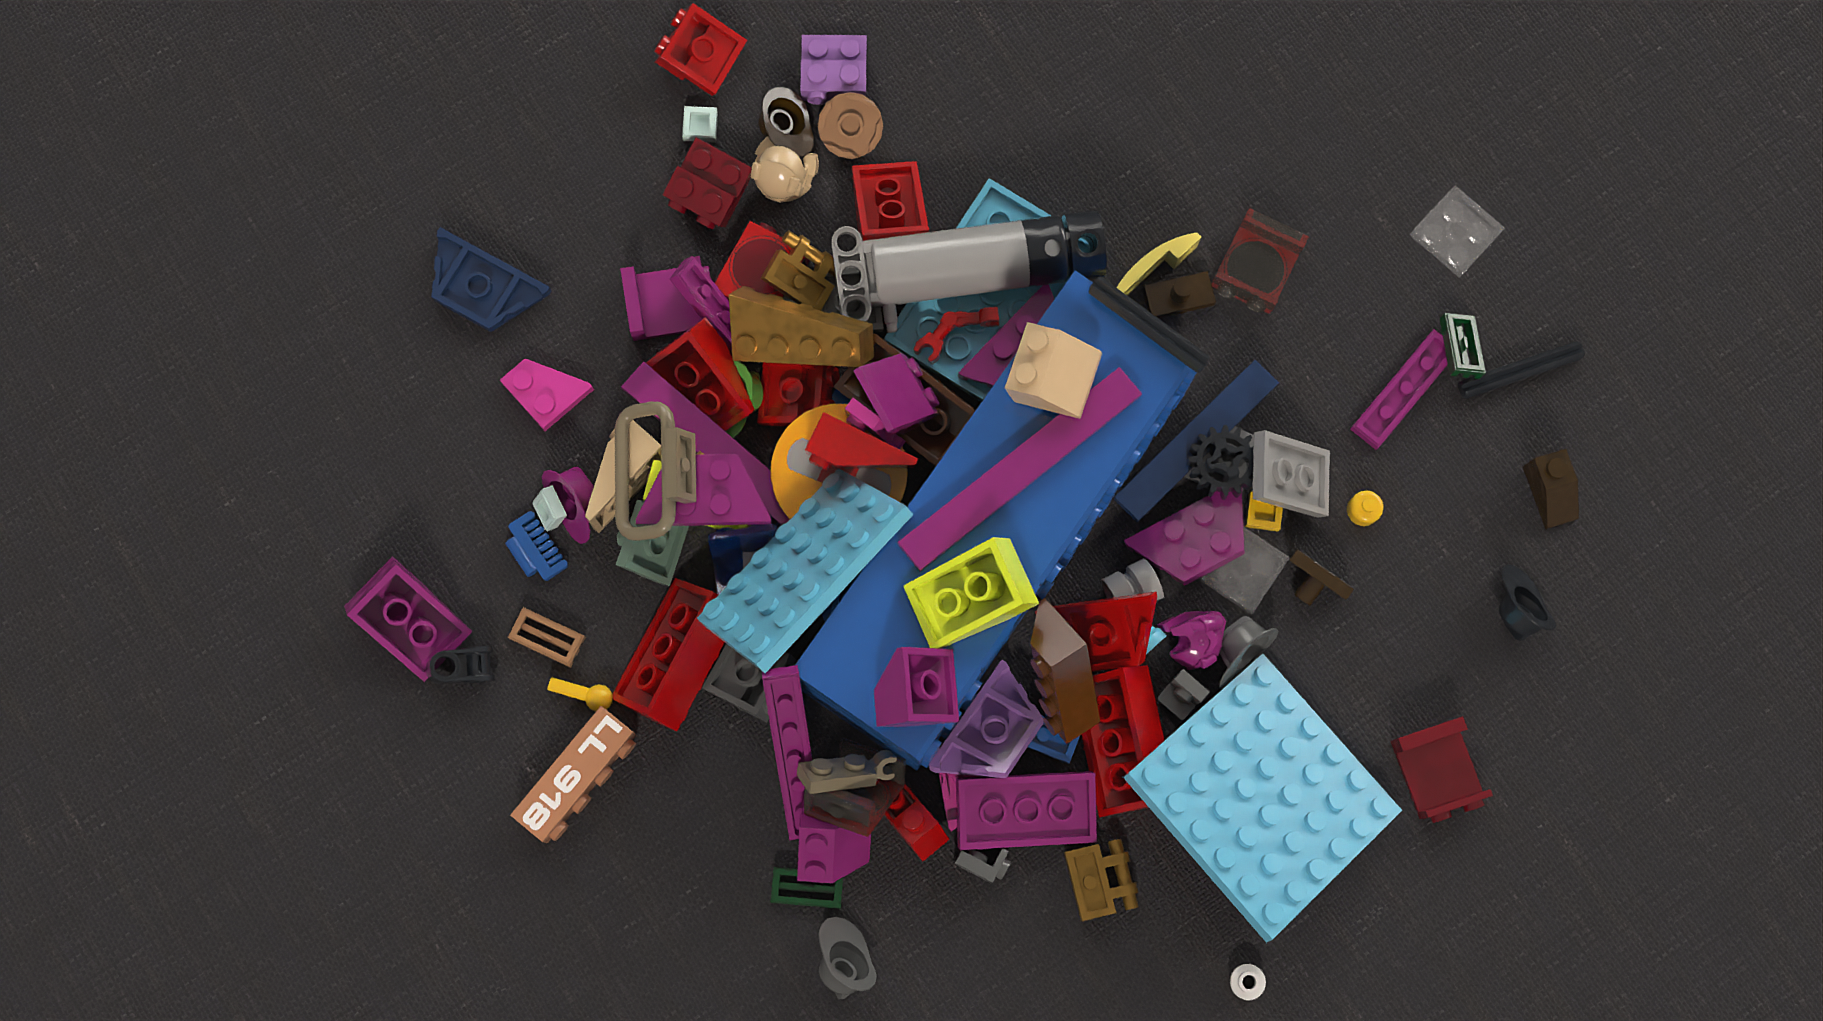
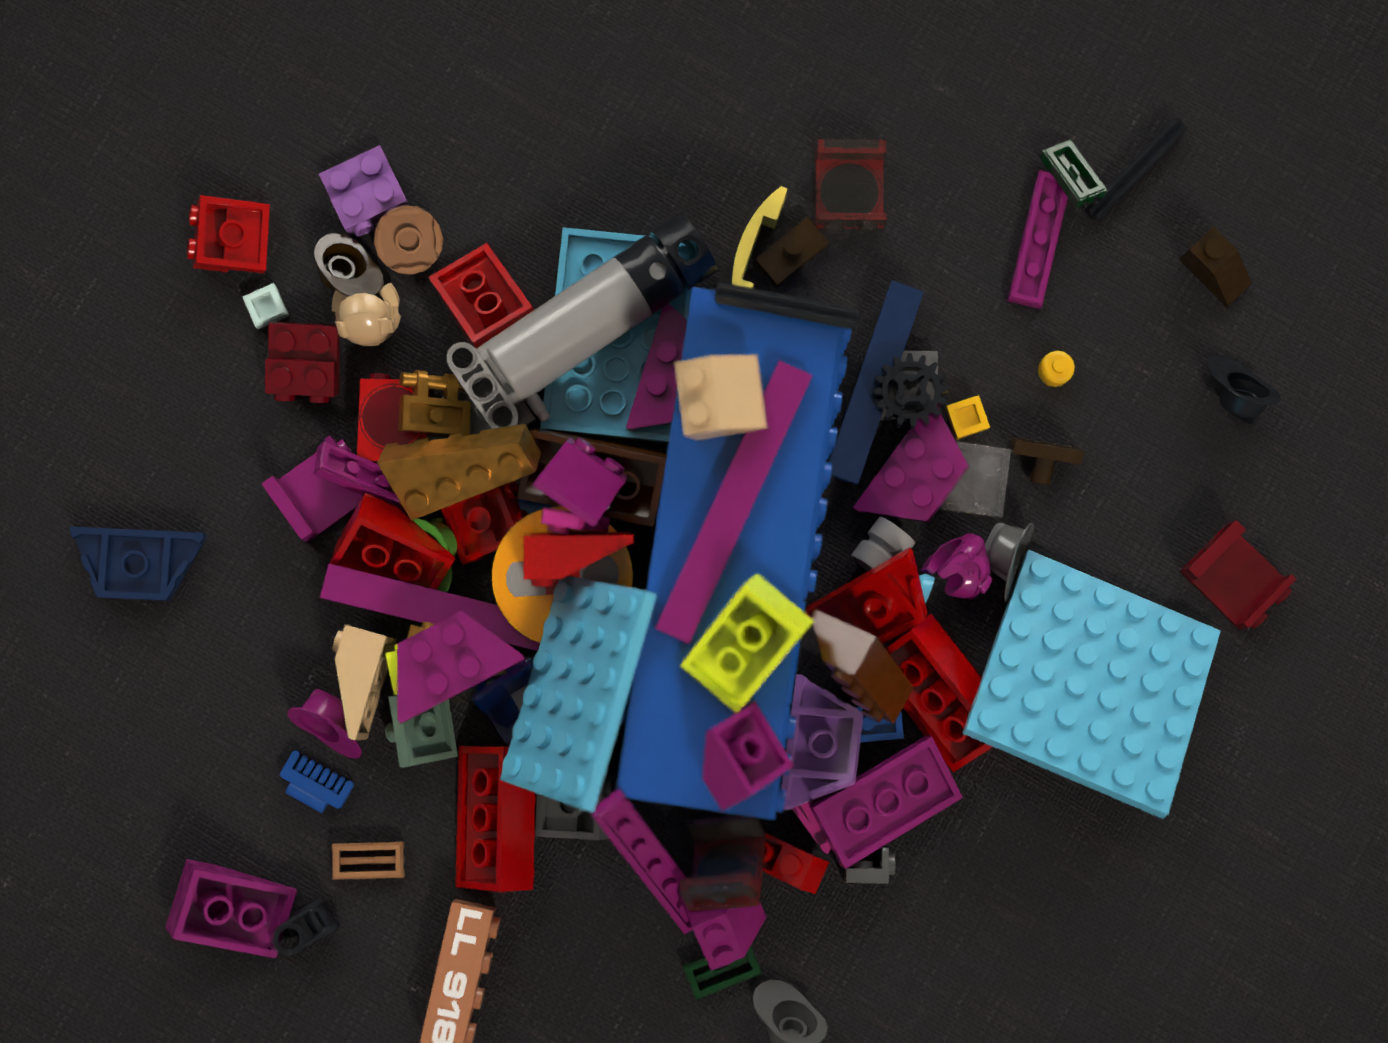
camera: 25 degrees left, 5 degrees up
(544, 391) = (248, 632): dark pink wing -> none
(549, 508) = (309, 741): light aqua tile -> none
(595, 696) = (442, 893): yellow bar -> none
(678, 470) = (413, 655): dark tan bar -> none
(845, 772) = (708, 856): dark tan plate -> none
(984, 317) = (593, 383): red piece -> none
(1091, 883) = (975, 836): pearl gold plate -> none
(1182, 695) = (975, 624): dark grey bracket -> none
(1237, 986) = (1146, 854): white plate -> none
(1291, 474) = (976, 373): light grey plate -> none
(1457, 231) = (1017, 67): clear plate -> none

